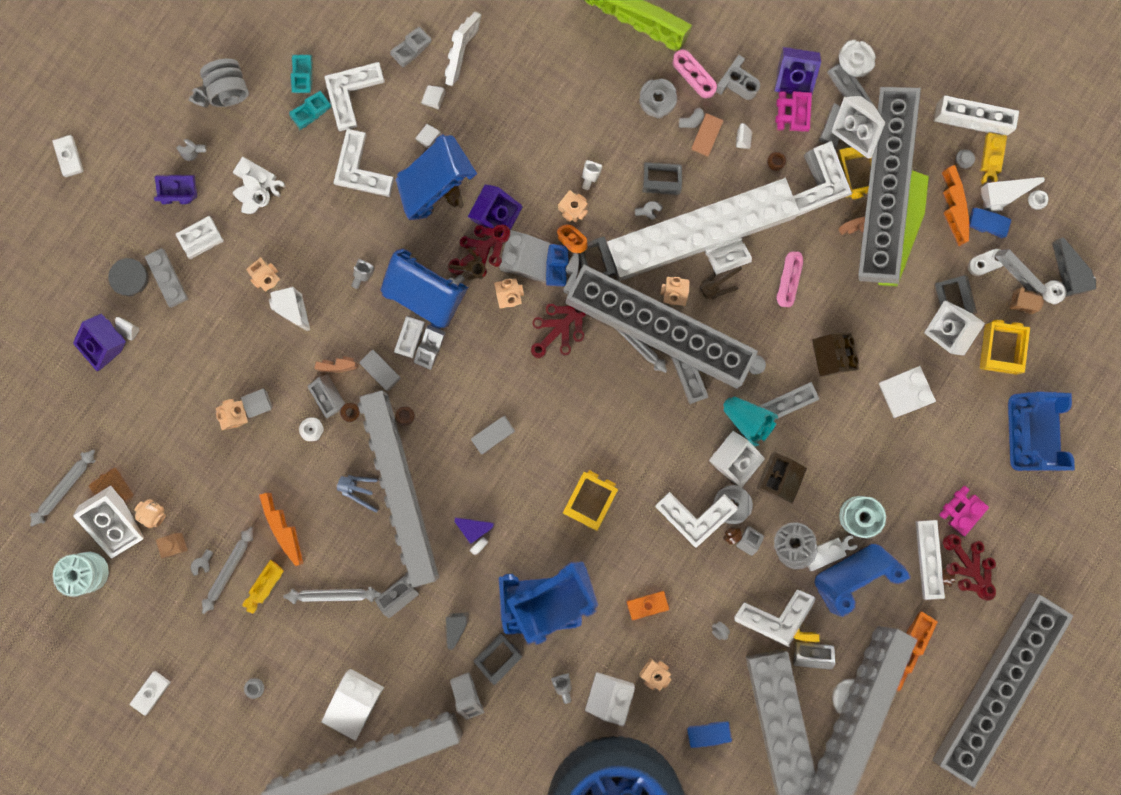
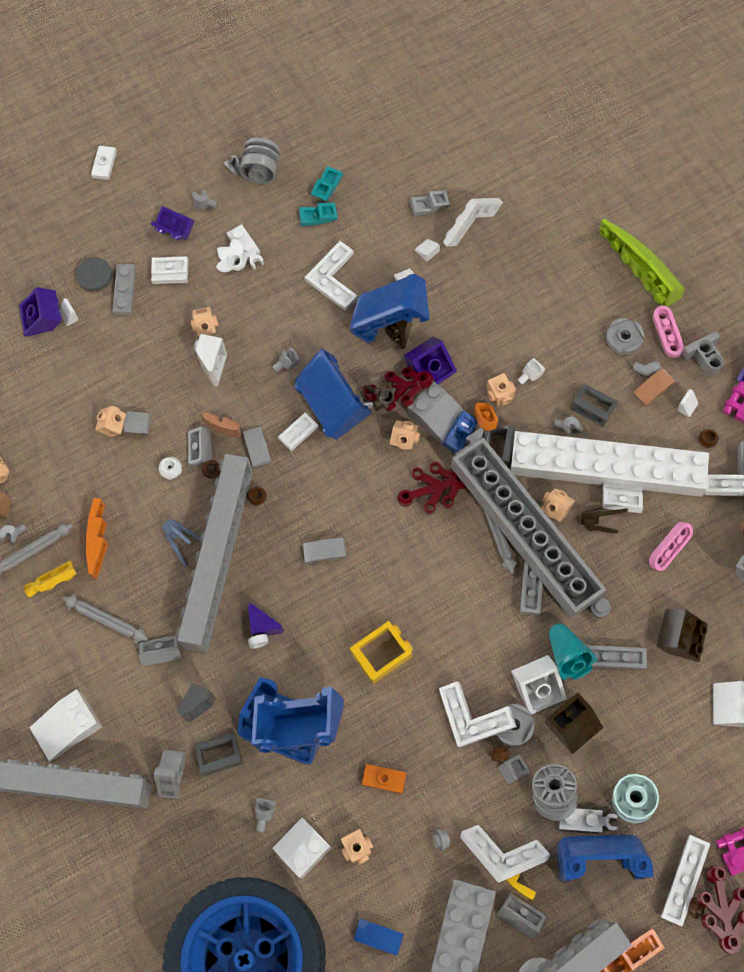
camera: 35 degrees right, 15 degrees down
(342, 82) = (362, 205): white plate -> none
(429, 347) = (311, 448): light grey slope -> none

